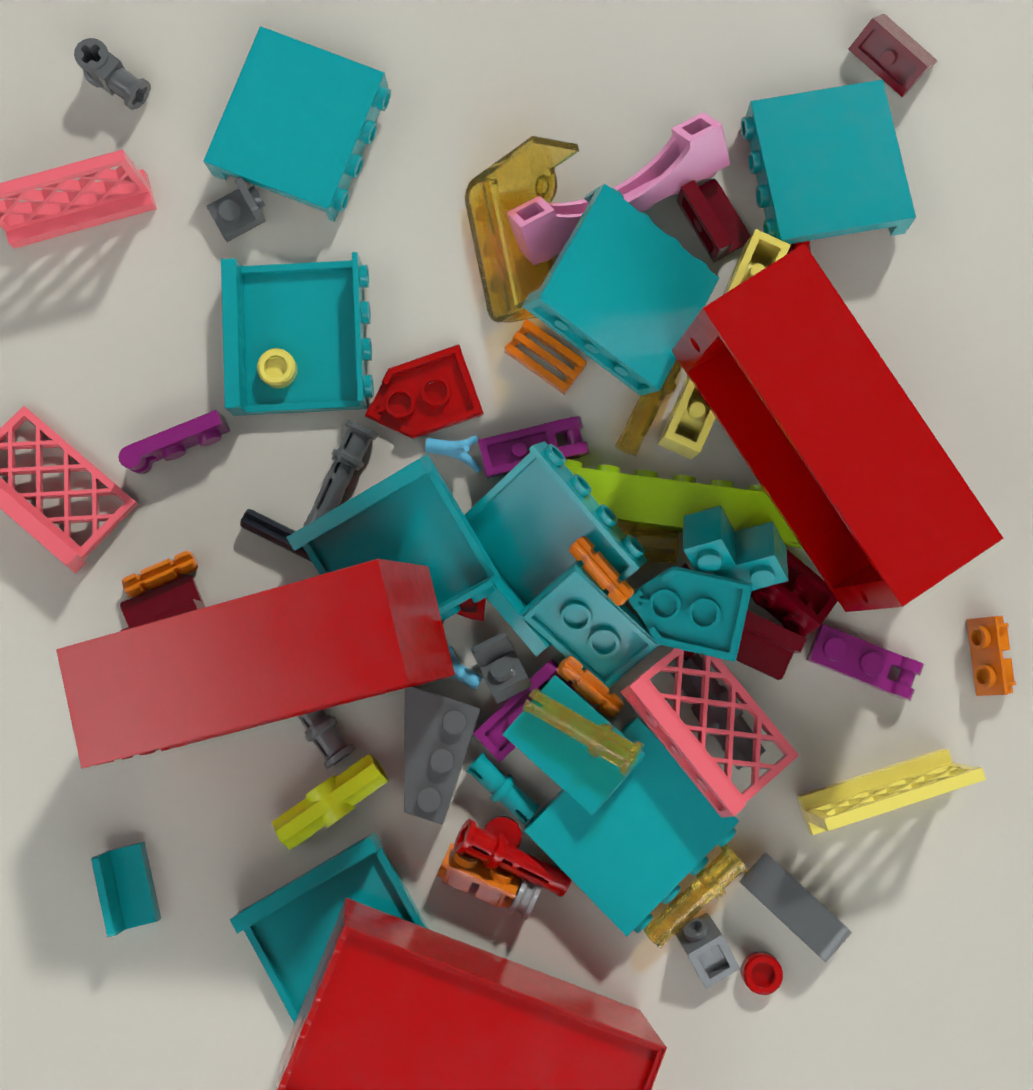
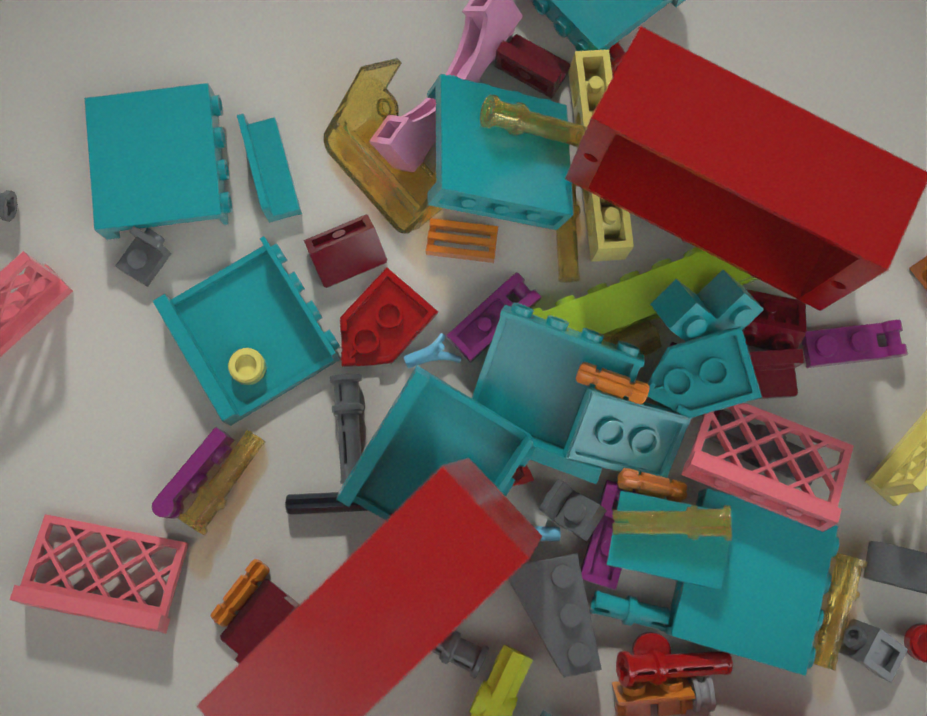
camera: 30 degrees left, 5 degrees down
(180, 473) = (213, 496): none -> clear yellow pin
(400, 187) = (270, 168): none -> teal panel
(428, 307) = (346, 251): none -> dark red panel
(656, 269) = (519, 119): none -> clear yellow pin

